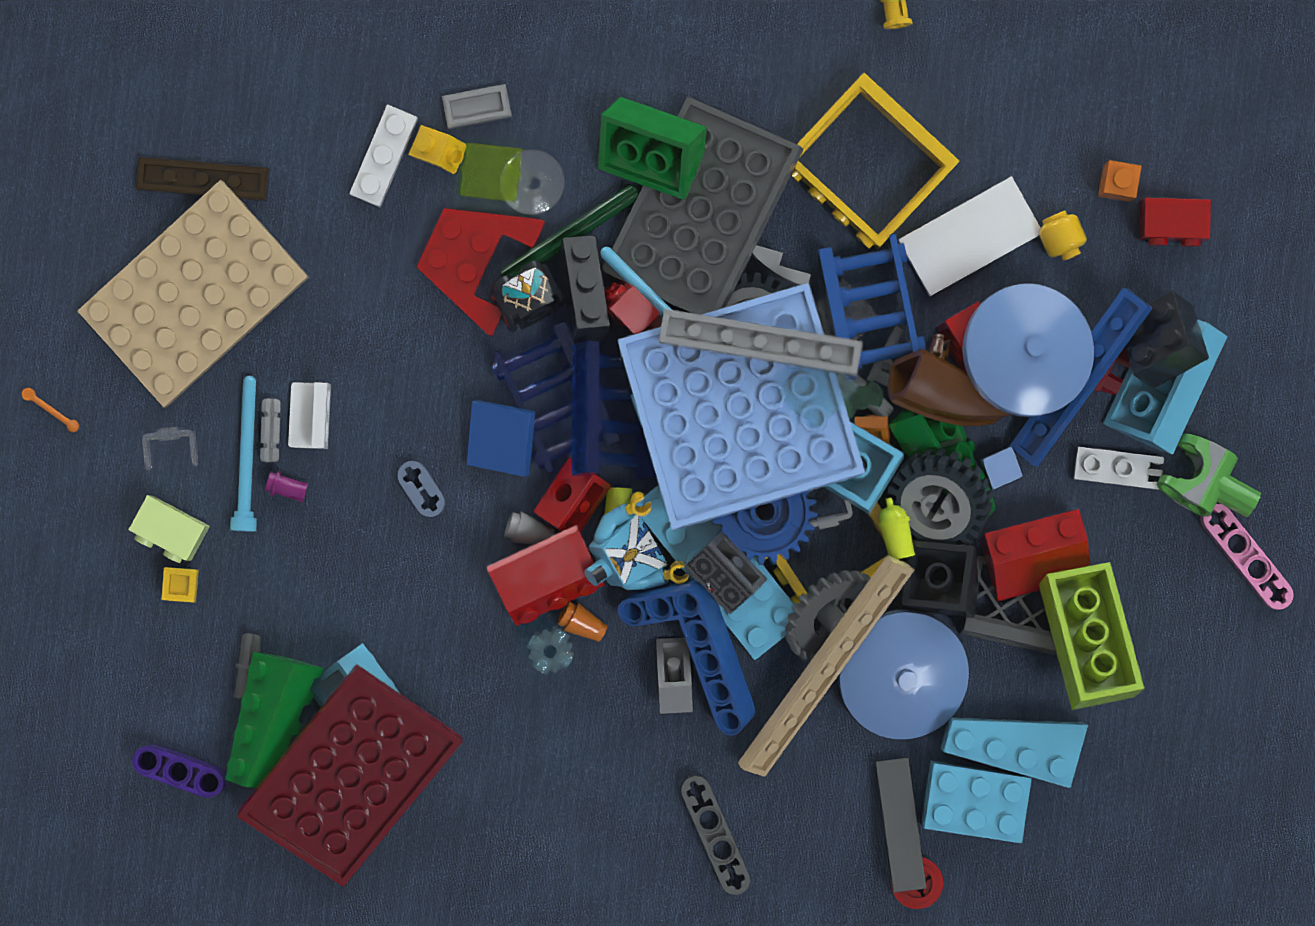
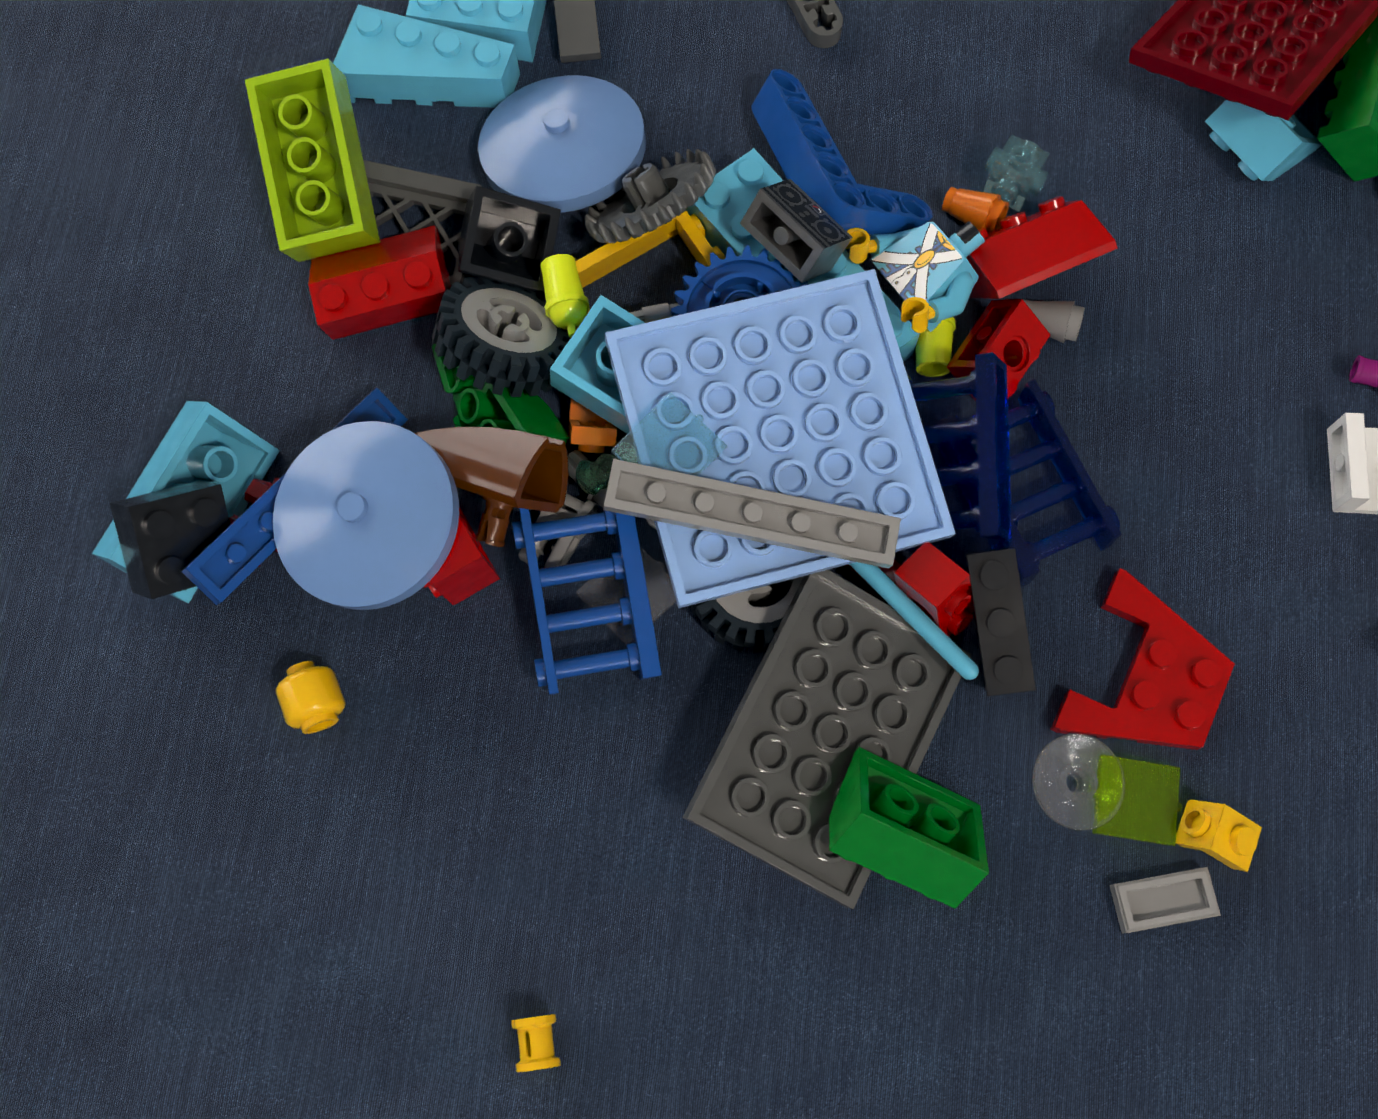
camera: 175 degrees left, 15 degrees down
(383, 156) = (1296, 827): white plate -> none
(415, 493) = (1198, 373): sand blue beam -> none
(500, 438) = (1101, 427): blue tile -> none
(527, 296) = (1078, 612): black brick -> none
(577, 228) = (1016, 710): dark green axle -> none
(674, 675) = (856, 135): light grey slope -> none
(771, 260) = (729, 664): light grey slope -> none
(826, 666) = (656, 139): tan tile -> none
(906, 124) = (625, 735): yellow window -> none
(970, 236) = (442, 702): white tile -> none
(1001, 467) = (421, 395): light blue slope -> none
(1116, 467) = (267, 393): white hinge -> none
(1119, 181) = (219, 773): orange brick -> none
(1175, 221) = (146, 717): red brick -> none
(1210, 480) = (138, 367): bright green connector -> none
(1243, 559) = (107, 284): bright pink beam -> none

